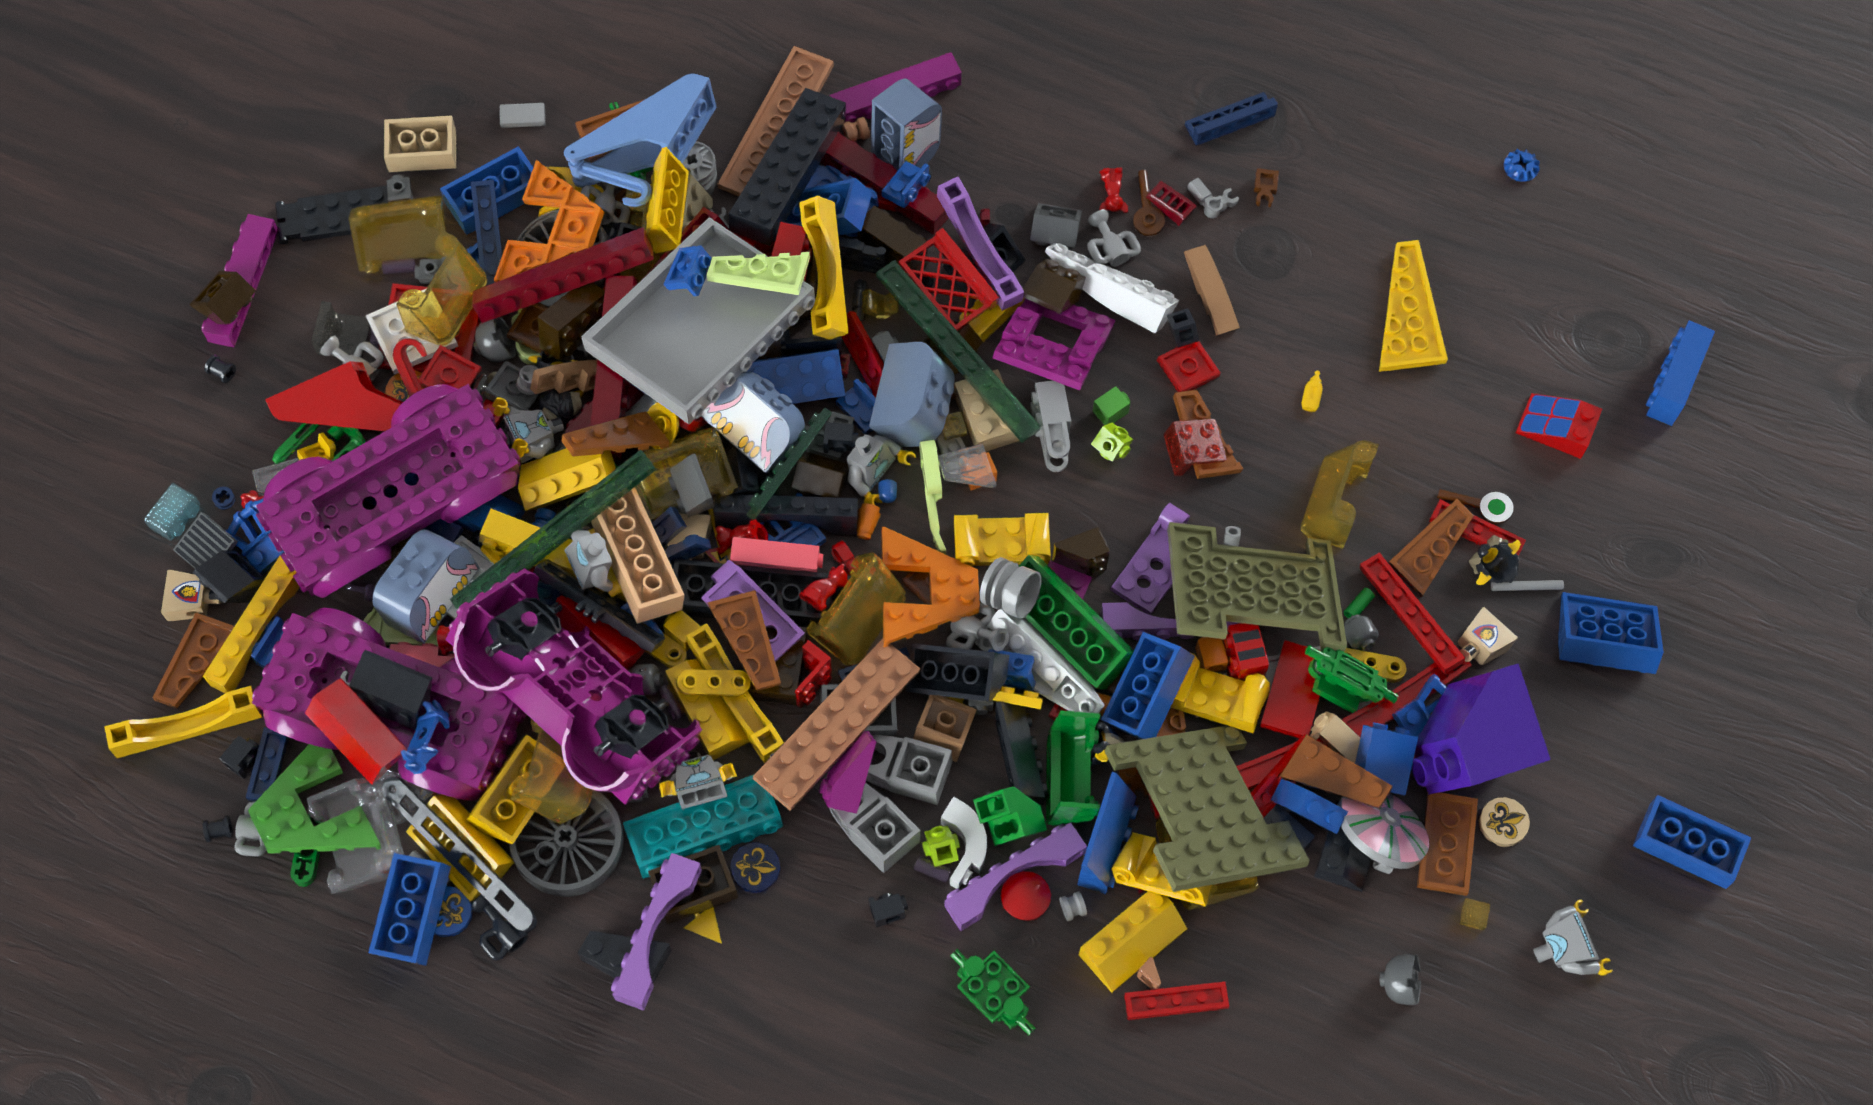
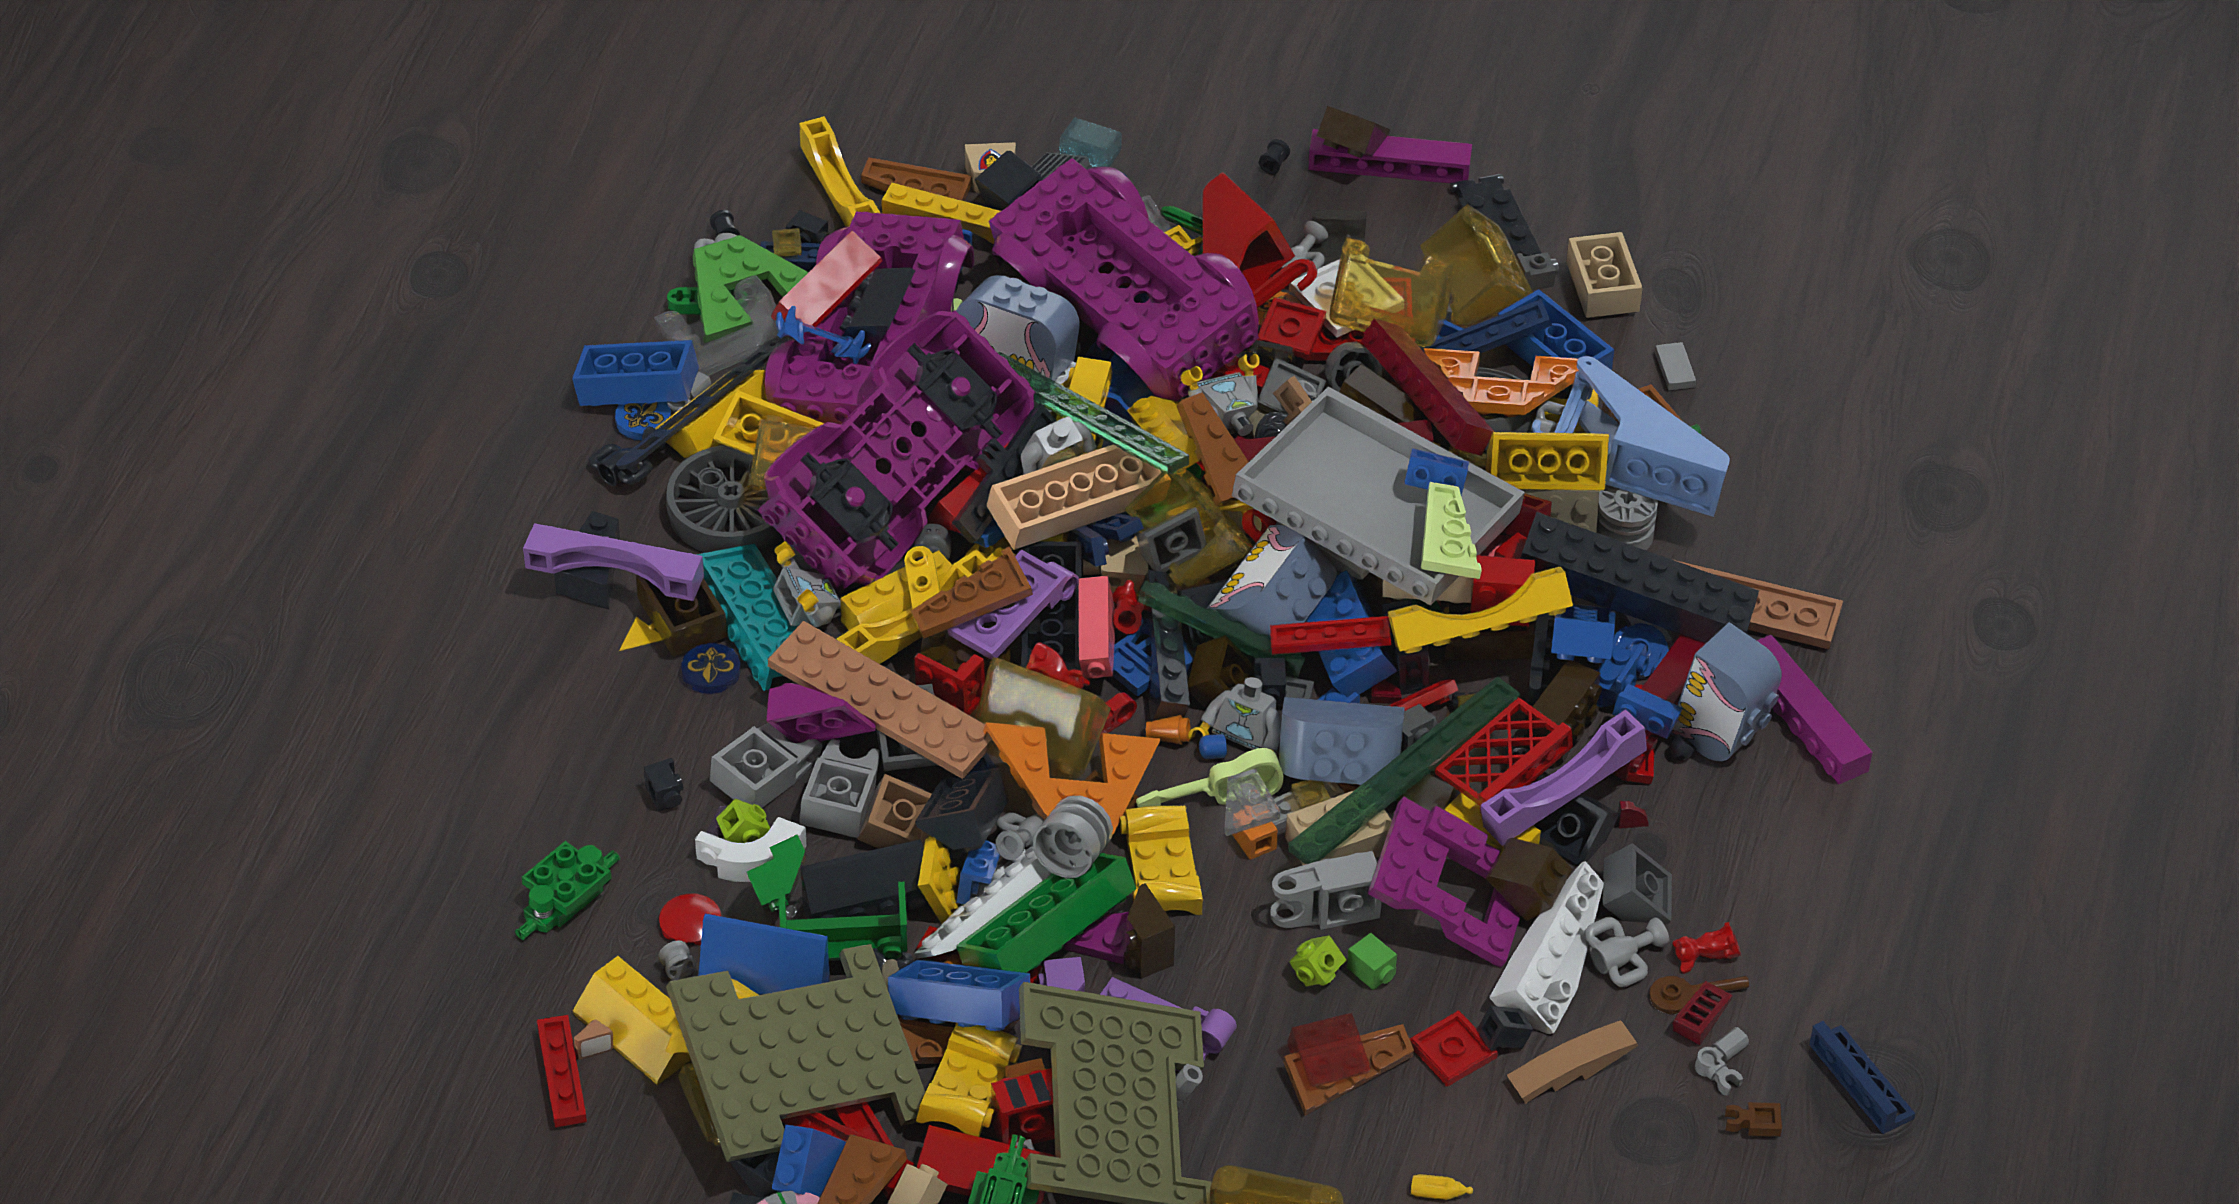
camera: 85 degrees right, 20 degrees down
(260, 771) = (787, 242): none -> clear yellow plate
(816, 382) = (1330, 635): none -> red tile
(1057, 849) = (677, 864): medium lavender arch -> none

